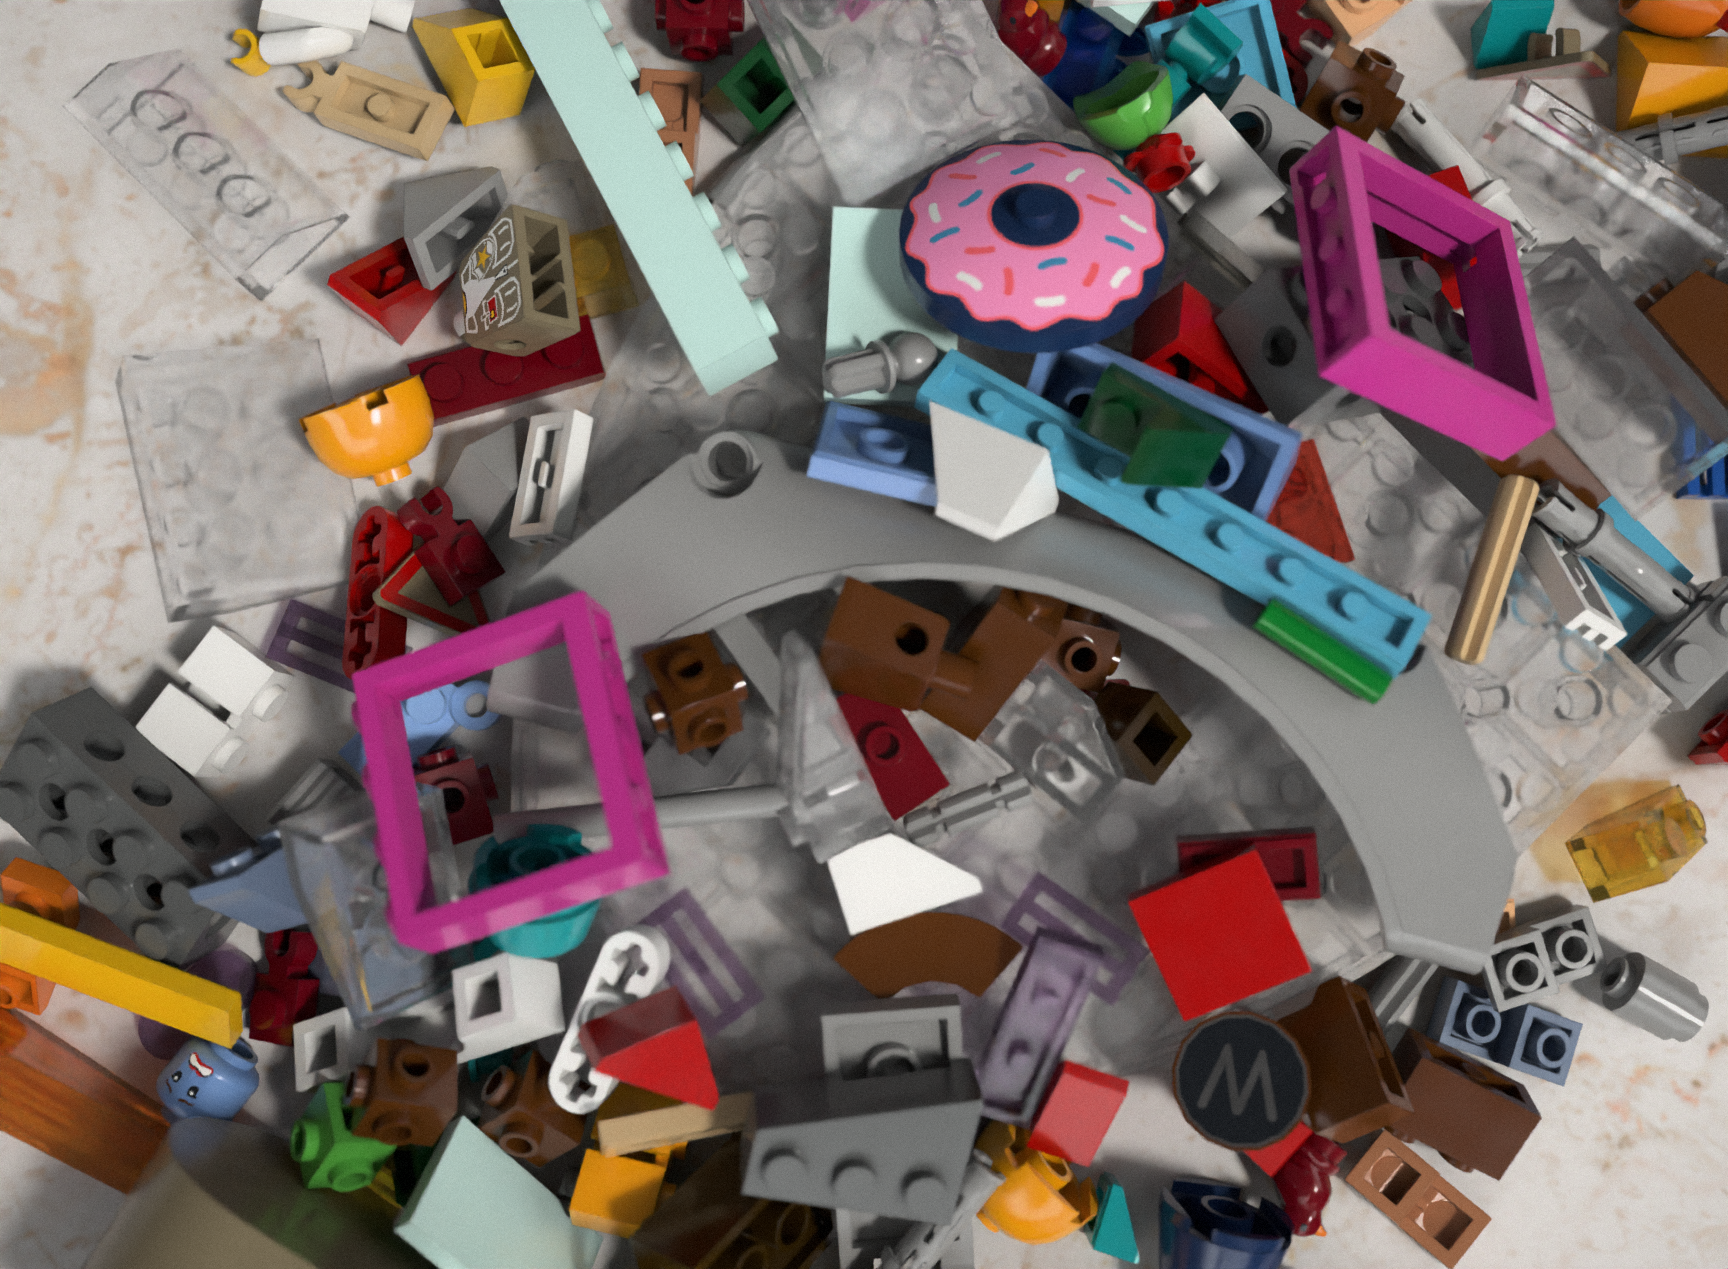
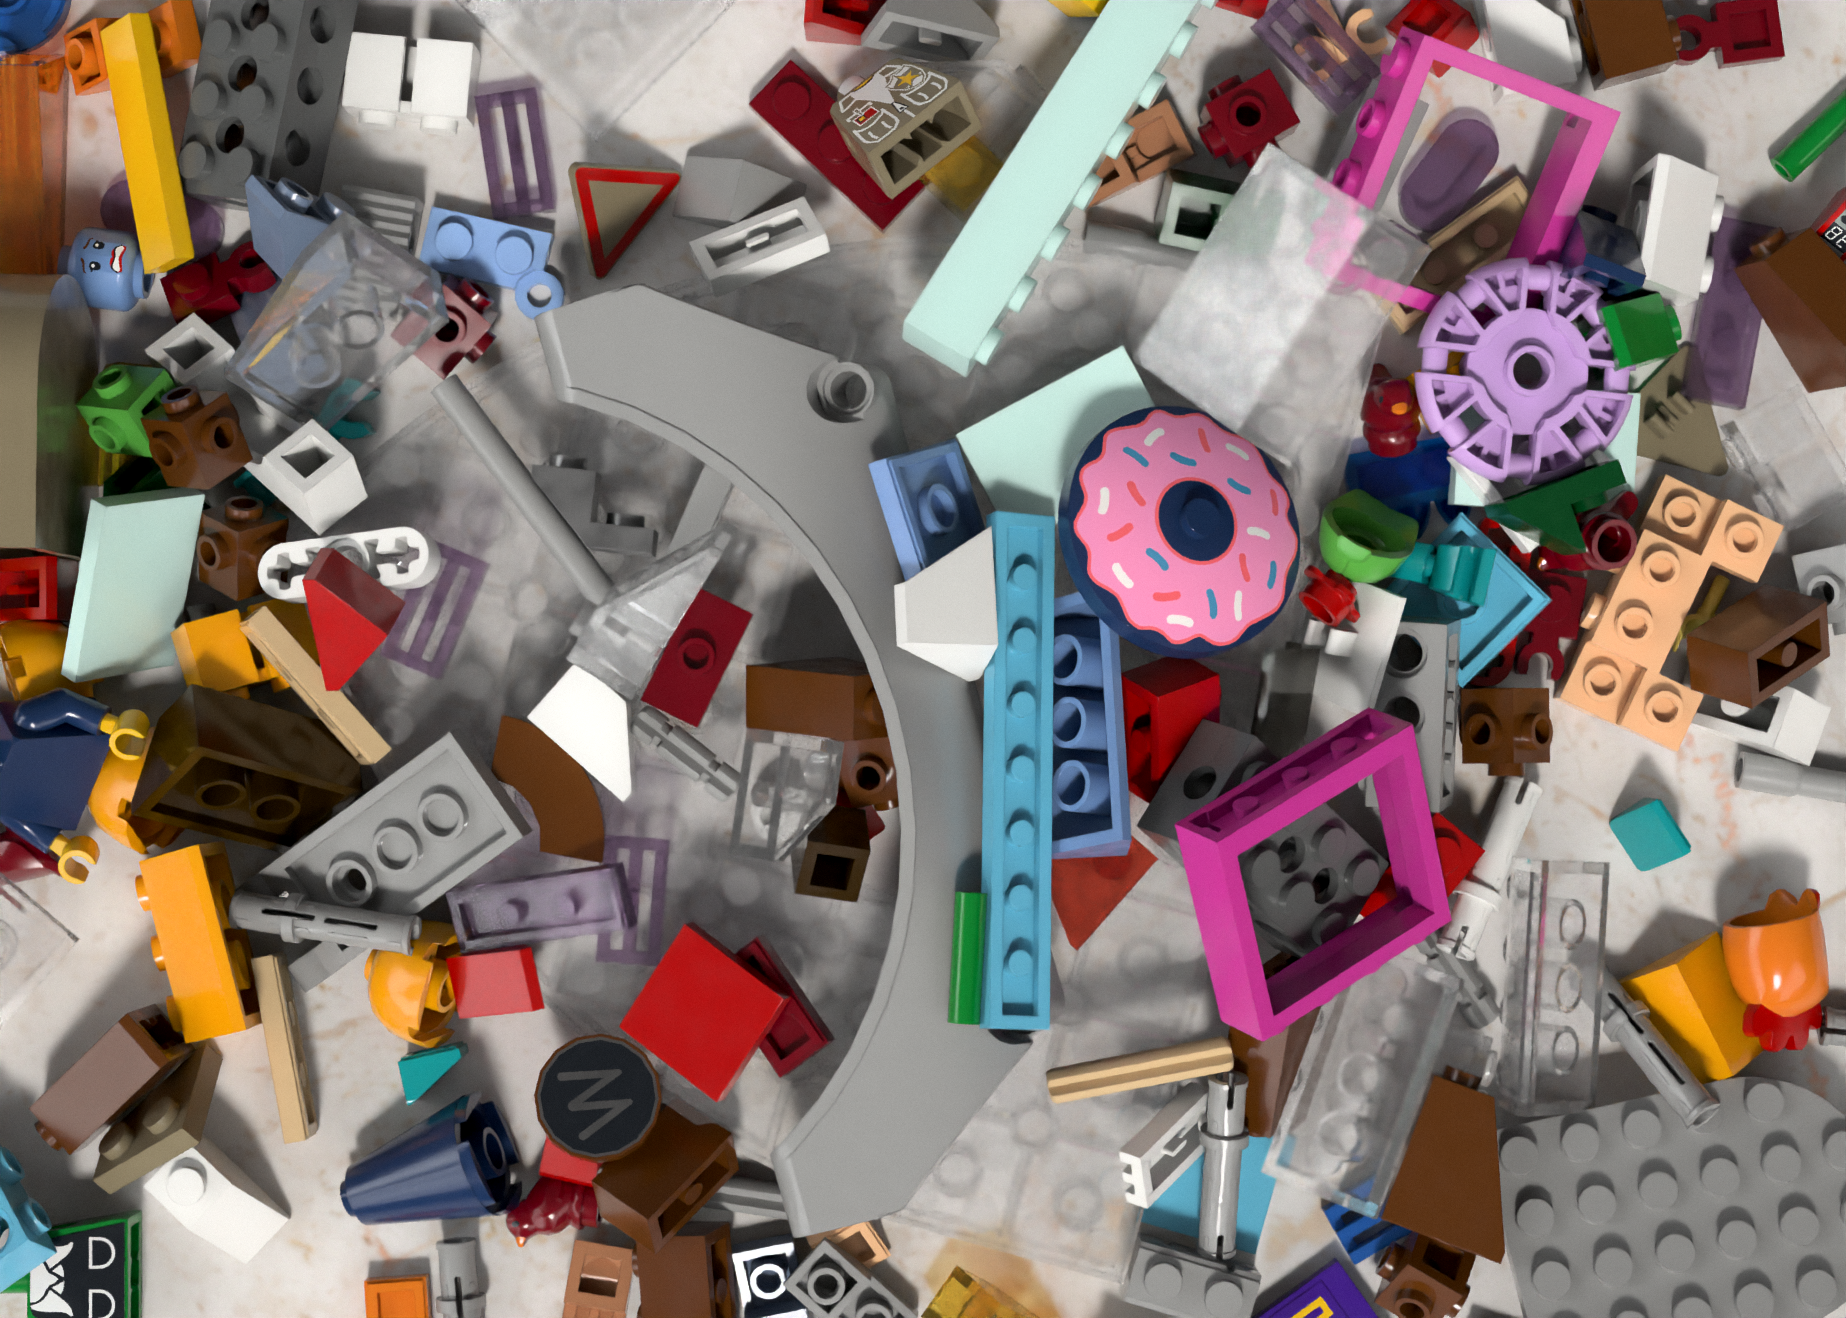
camera: 55 degrees right, 5 degrees up
(370, 630) = (542, 179): red beam -> none
(373, 431) = (714, 69): light orange cylinder -> none
(452, 554) = (652, 202): dark red plate -> none
(520, 857) = (415, 448): teal cone -> none
(615, 750) = (558, 443): dark pink window -> none
(693, 693) = (641, 477): reddish brown brick -> none
(865, 1143) = (372, 824): dark grey wedge -> none
(878, 367) = (1026, 486): light grey axle -> none
(890, 650) = (763, 590): reddish brown torso -> none
(1161, 433) = (1071, 731): dark green slope -> none
(1540, 64) = (1641, 883): dark tan piece -> none

